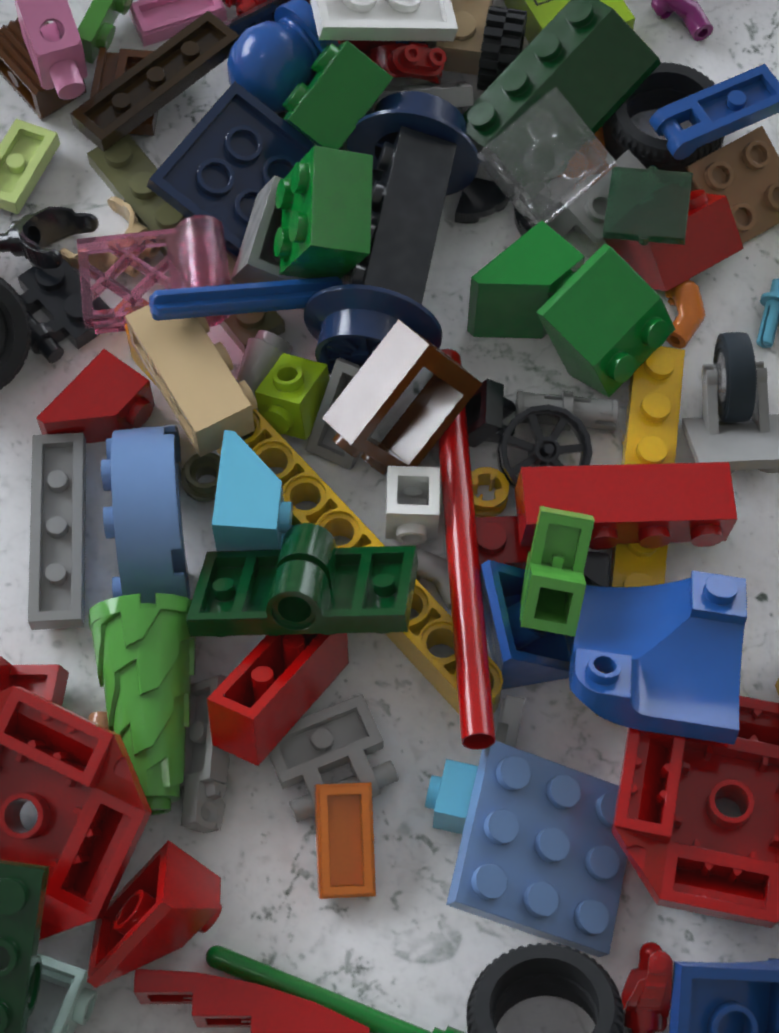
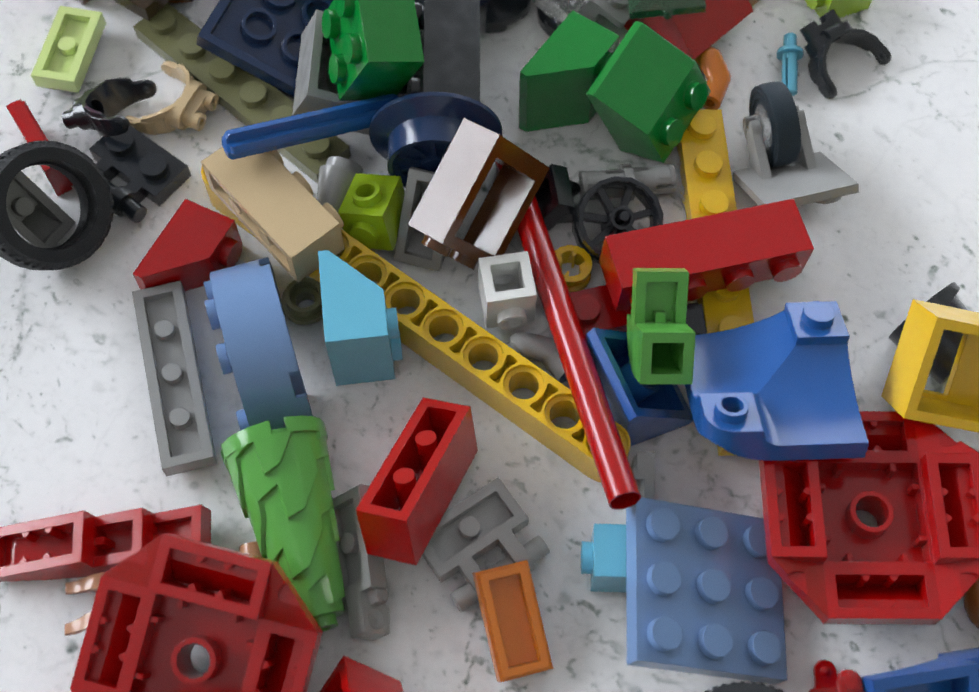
camera: 10 degrees left, 0 degrees up
(193, 258) = (252, 97): clear pink piece -> none
(304, 588) = (425, 387): dark green plate -> none

